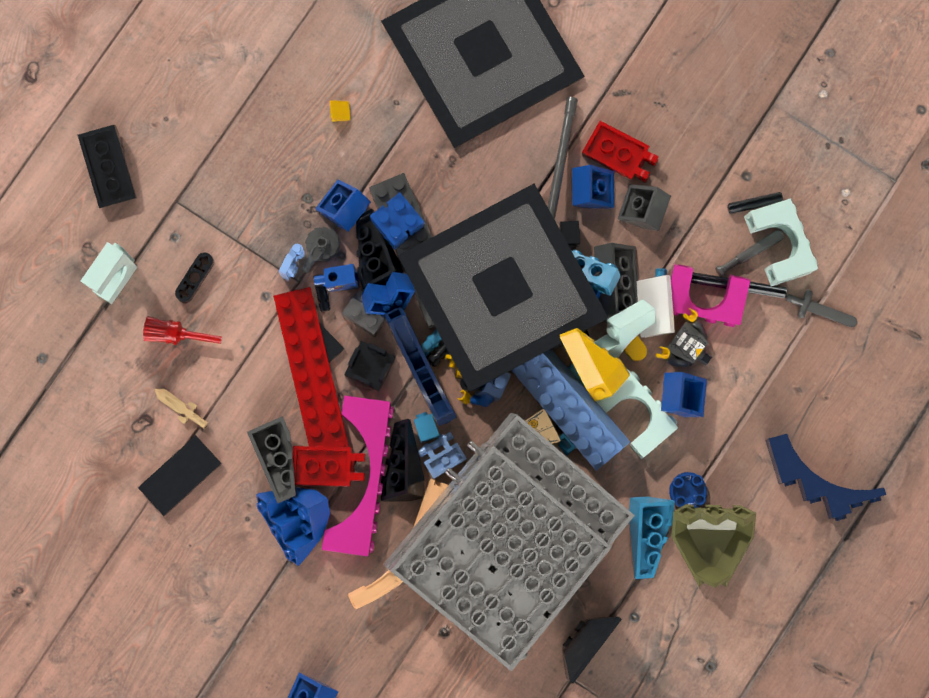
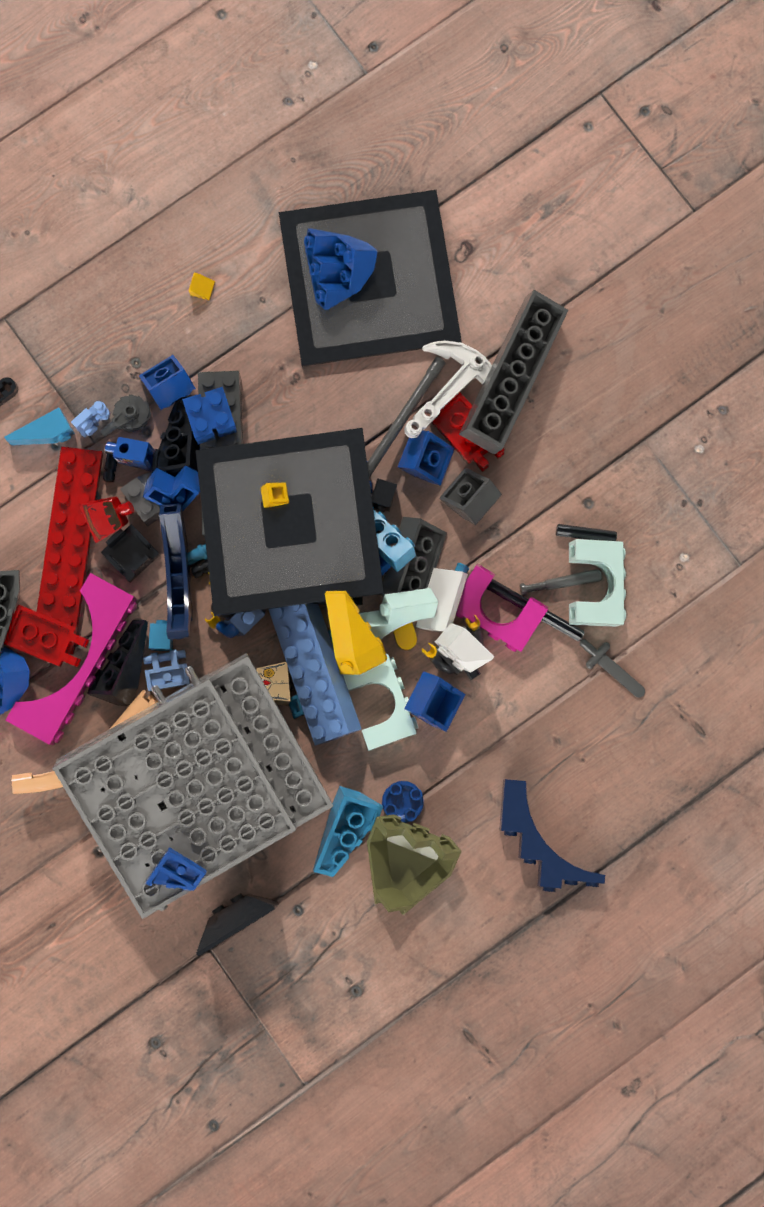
camera: 20 degrees right, 0 degrees up
(255, 285) = (44, 430): none -> dark azure slope
(339, 341) = (106, 516): none -> red torso
(452, 49) = (337, 265): none -> blue brick
(481, 268) = (274, 494): none -> yellow slope
(526, 619) = (176, 872): none -> blue wing
(601, 98) = (470, 369): none -> white piece
(642, 86) = (513, 372): none -> dark grey brick
(692, 340) = (462, 648): none -> white slope

